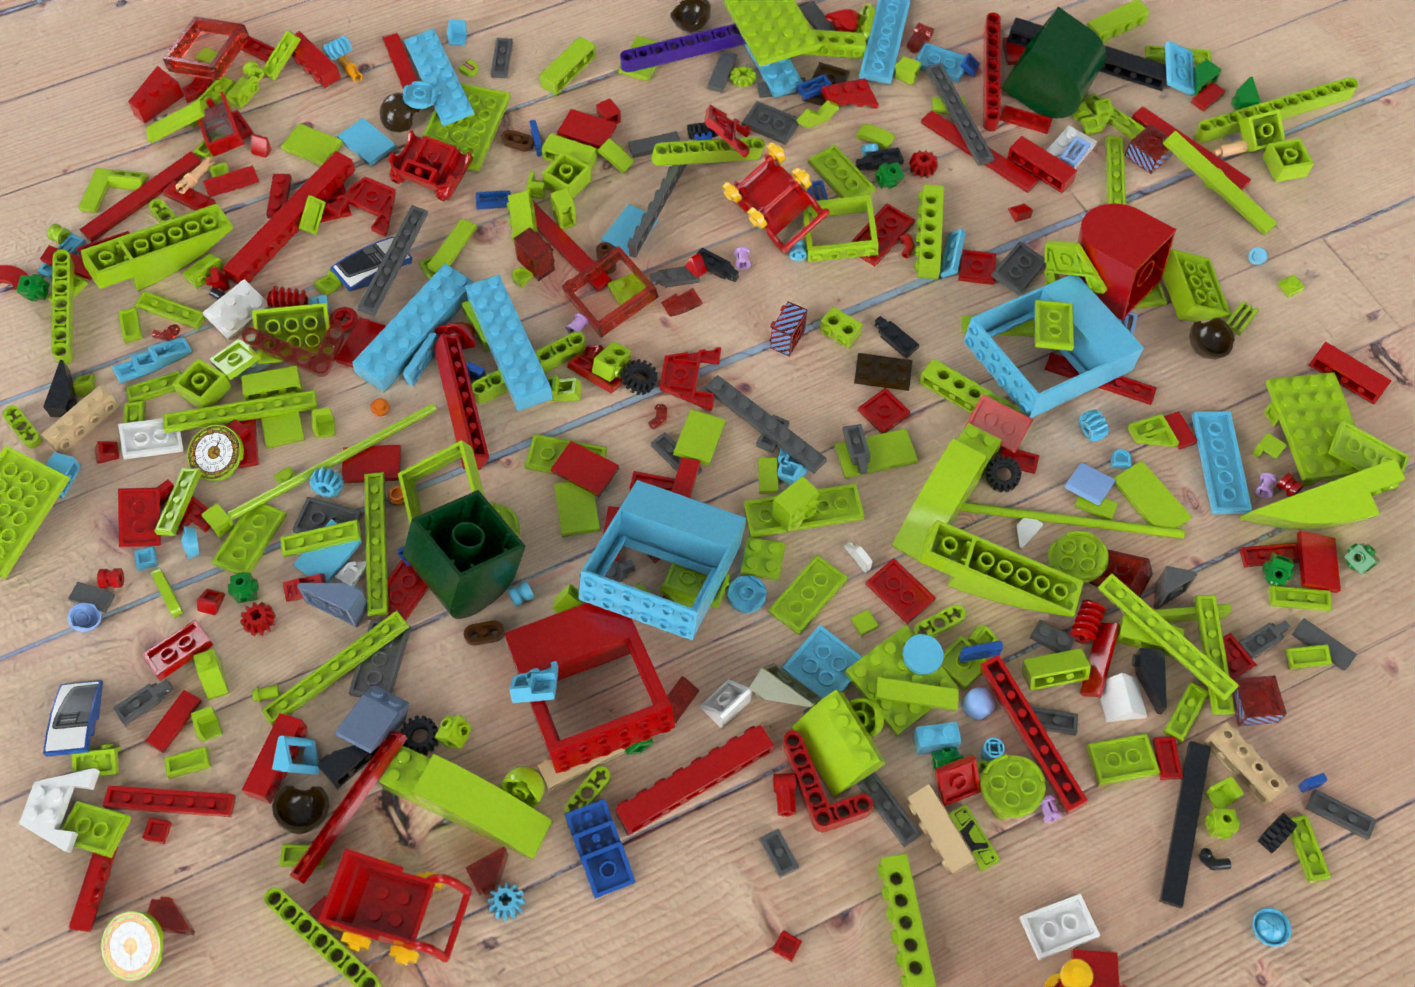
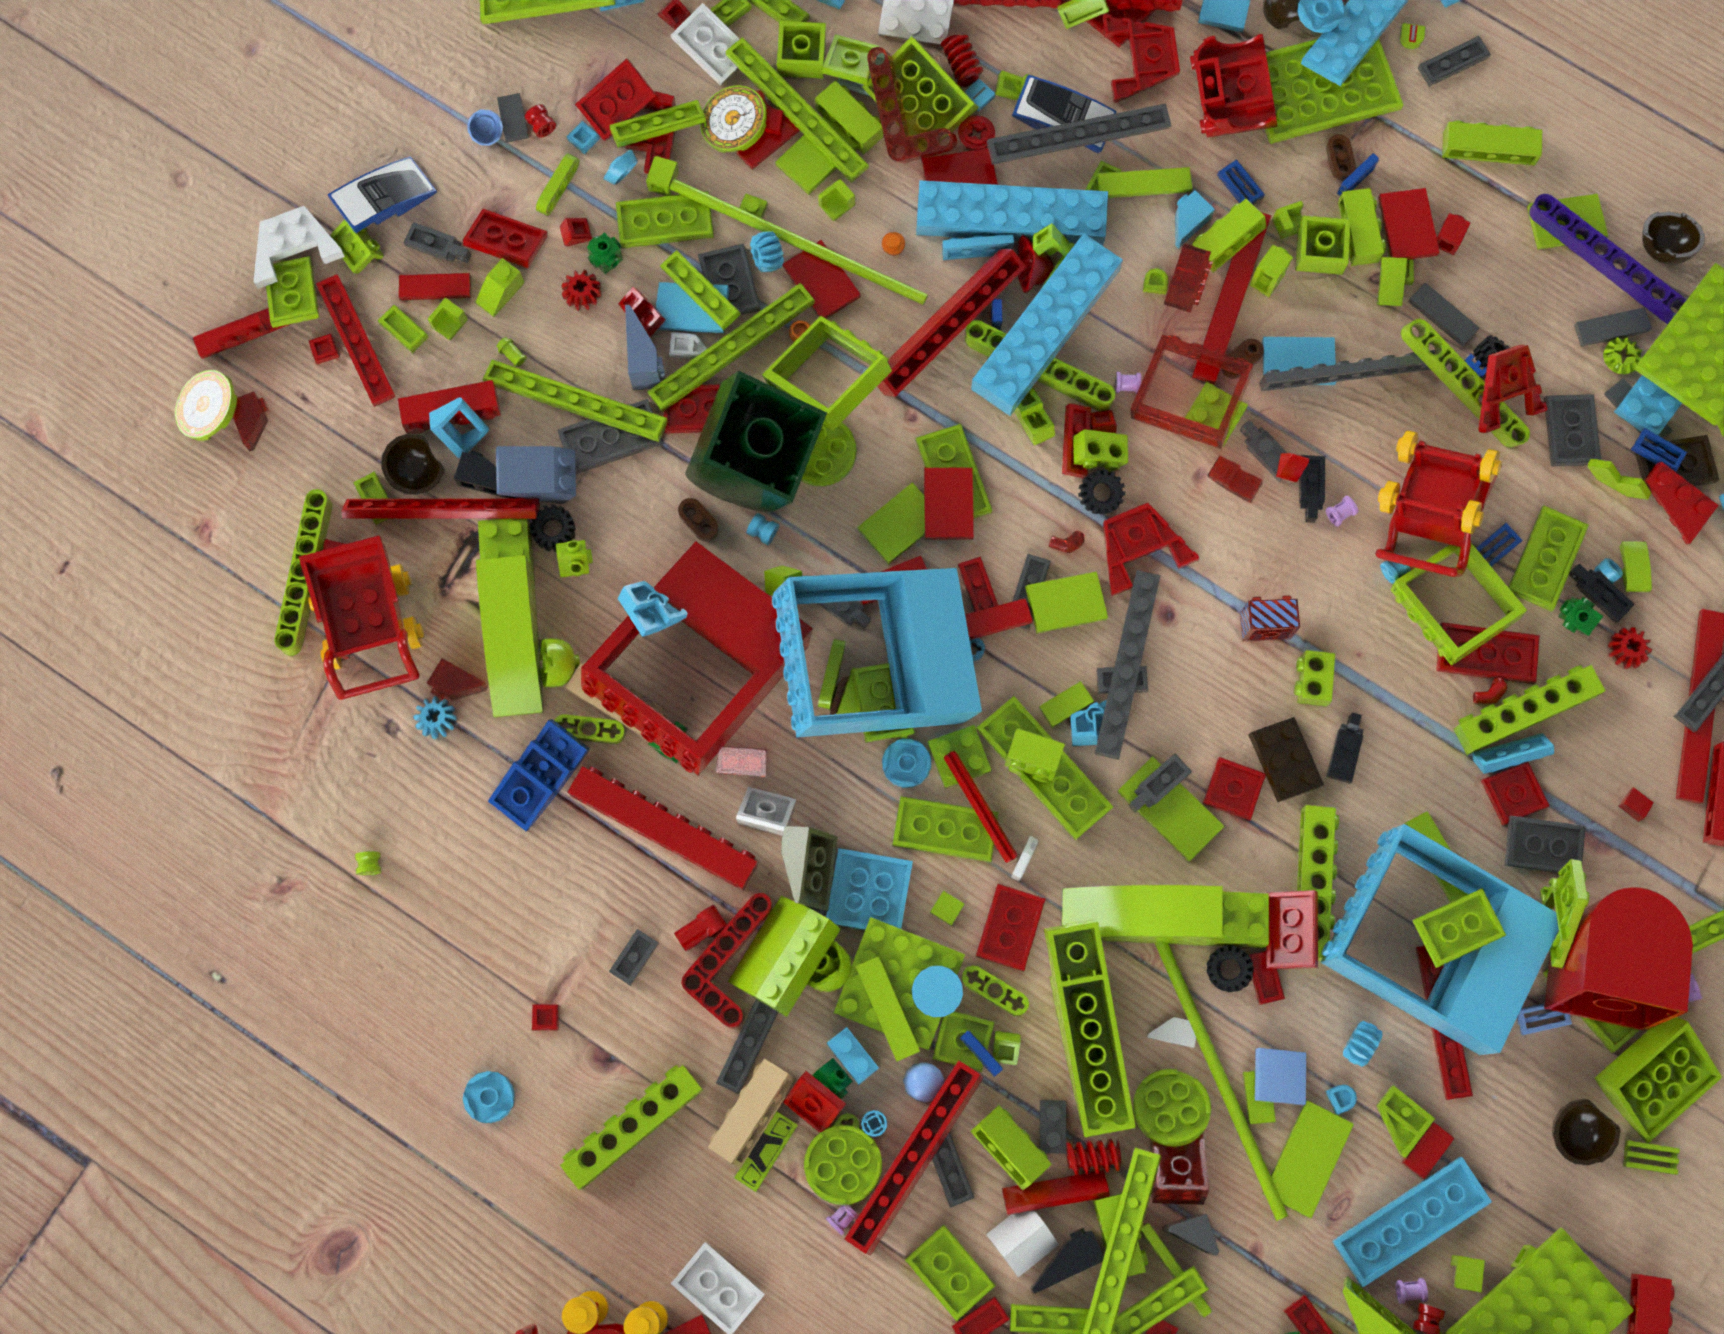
camera: 60 degrees right, 15 degrees up
(452, 312) = (1051, 241): none -> lime panel
(494, 234) = (1191, 216): none -> medium azure slope
(807, 560) = (980, 806): none -> red axle

